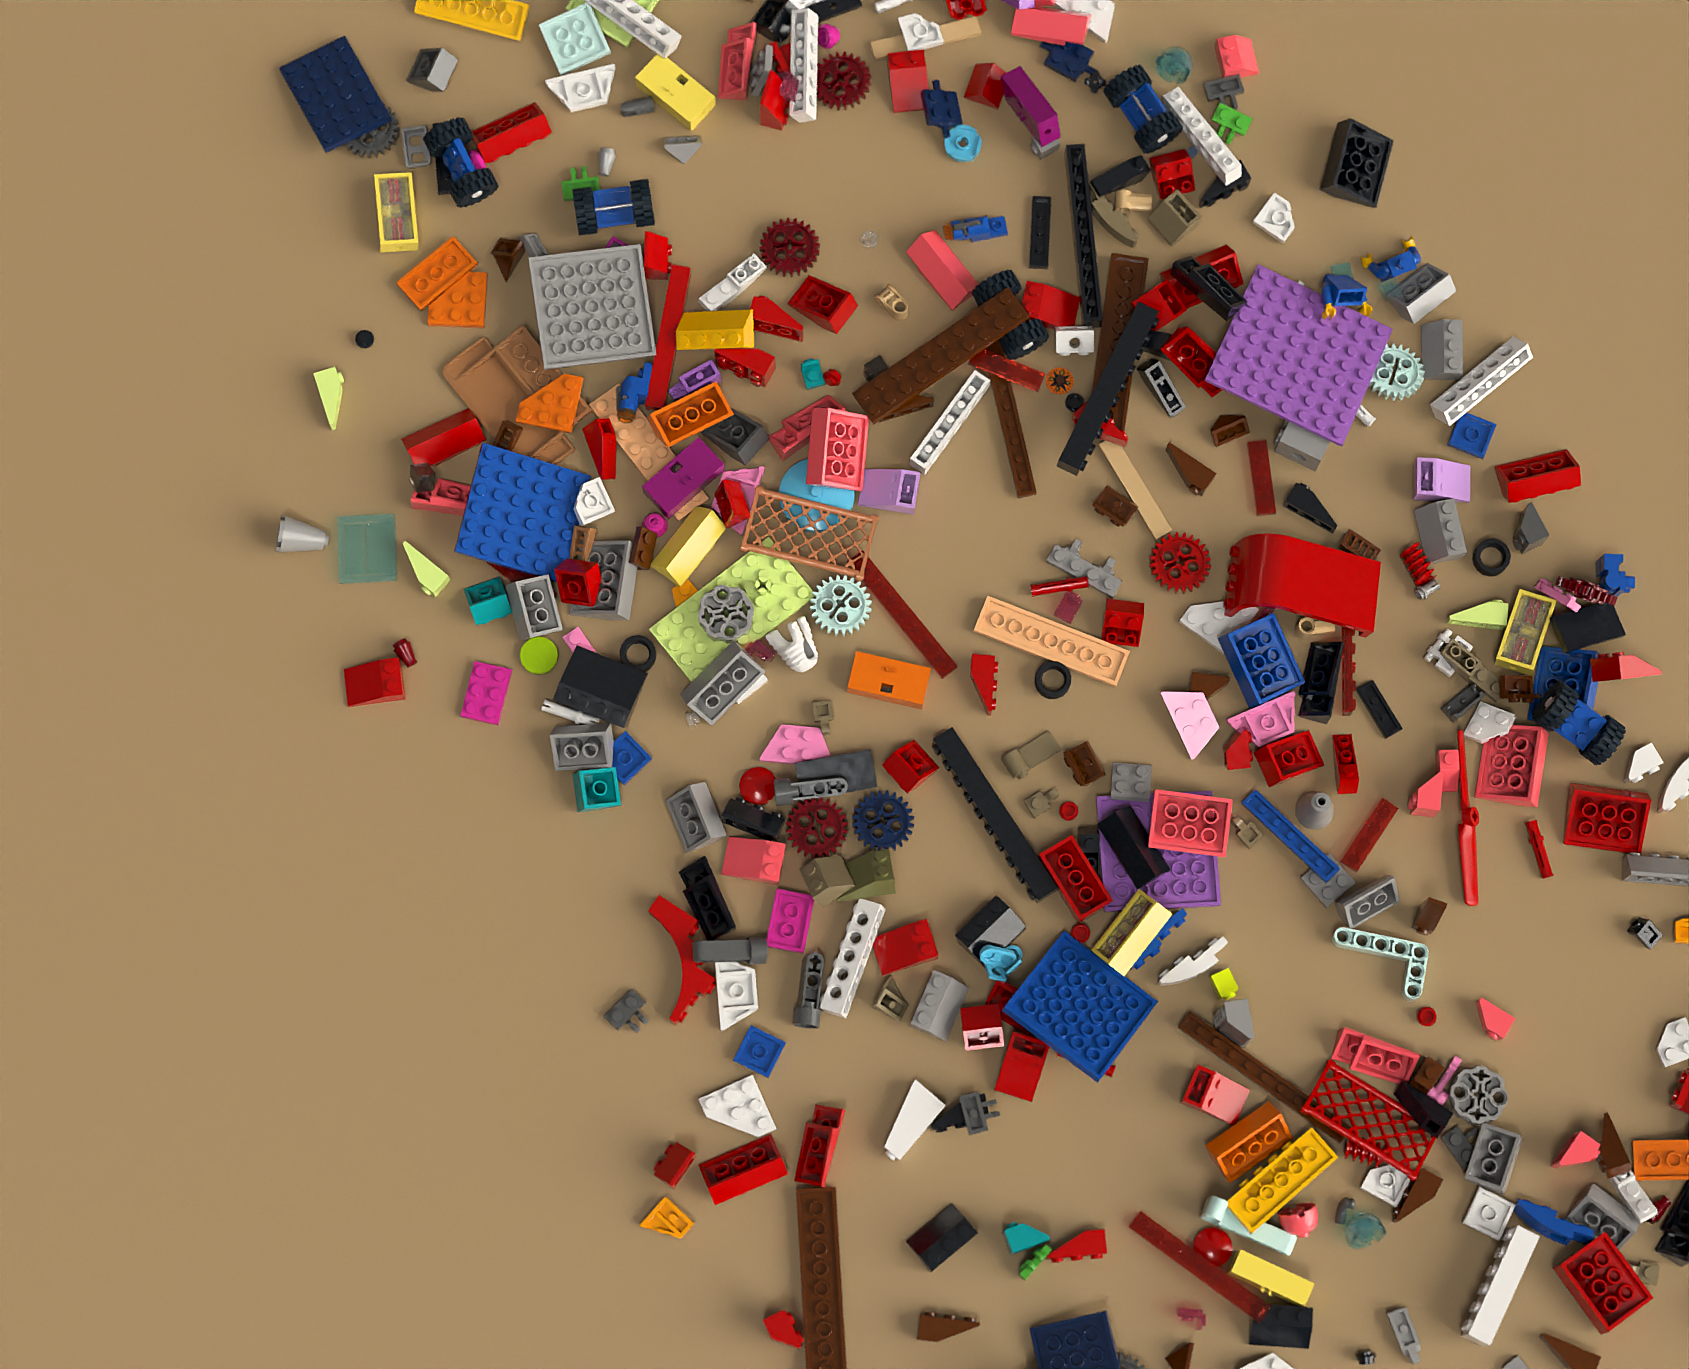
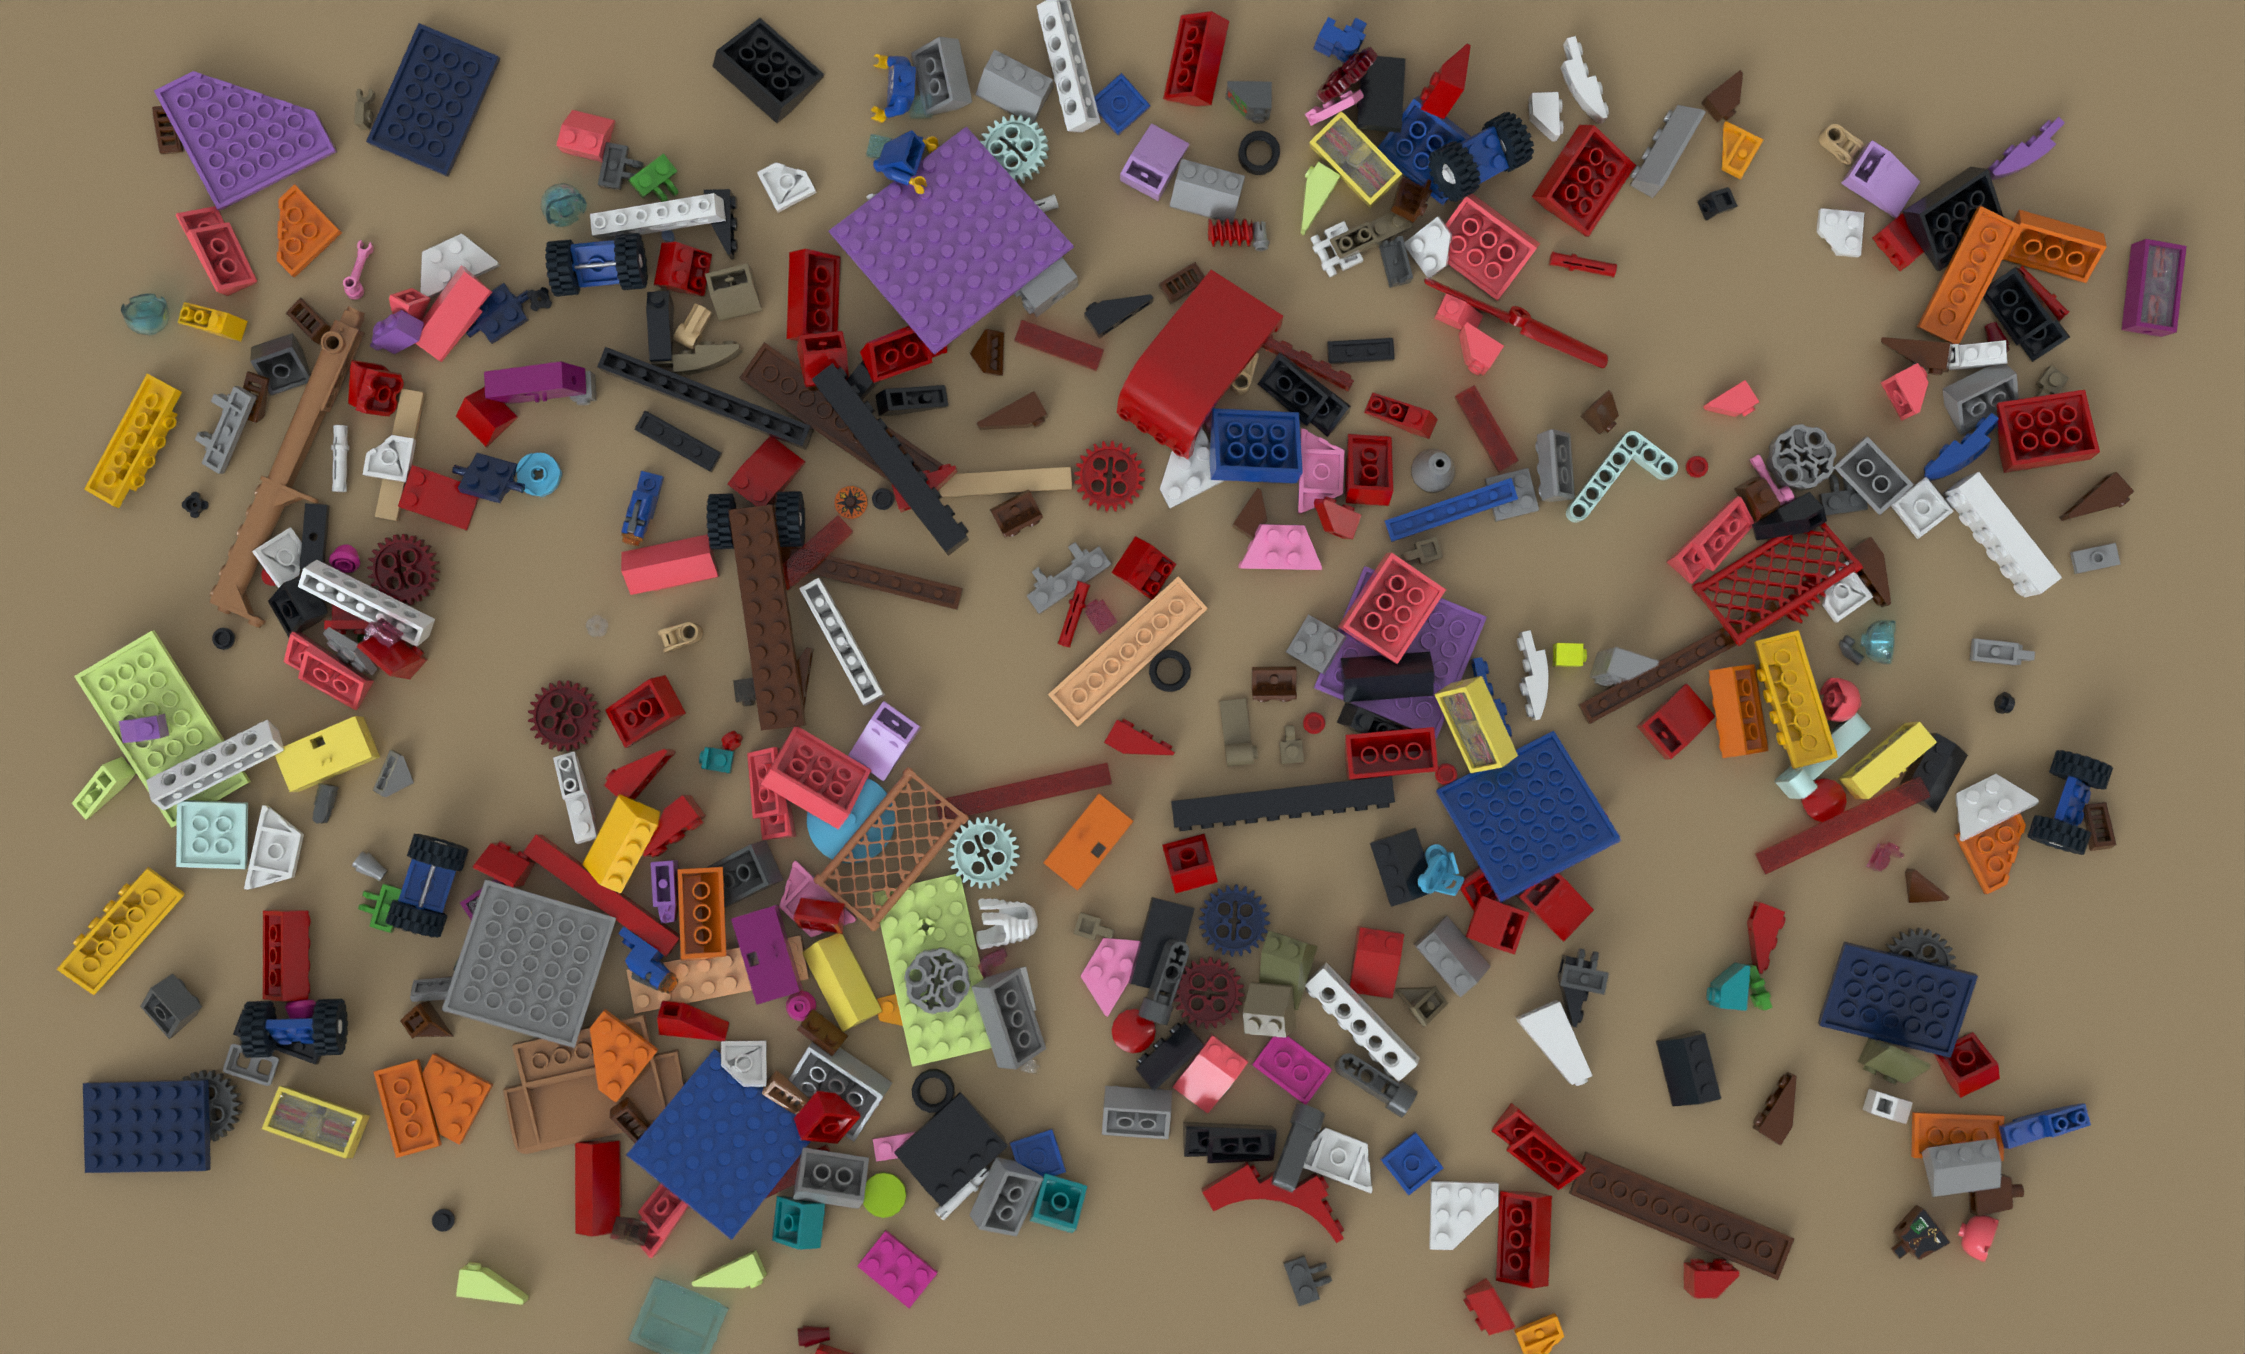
camera: 60 degrees left, 10 degrees up
(1066, 333) = (805, 471): white brick -> none
(1208, 286) = (830, 296): black slope -> none

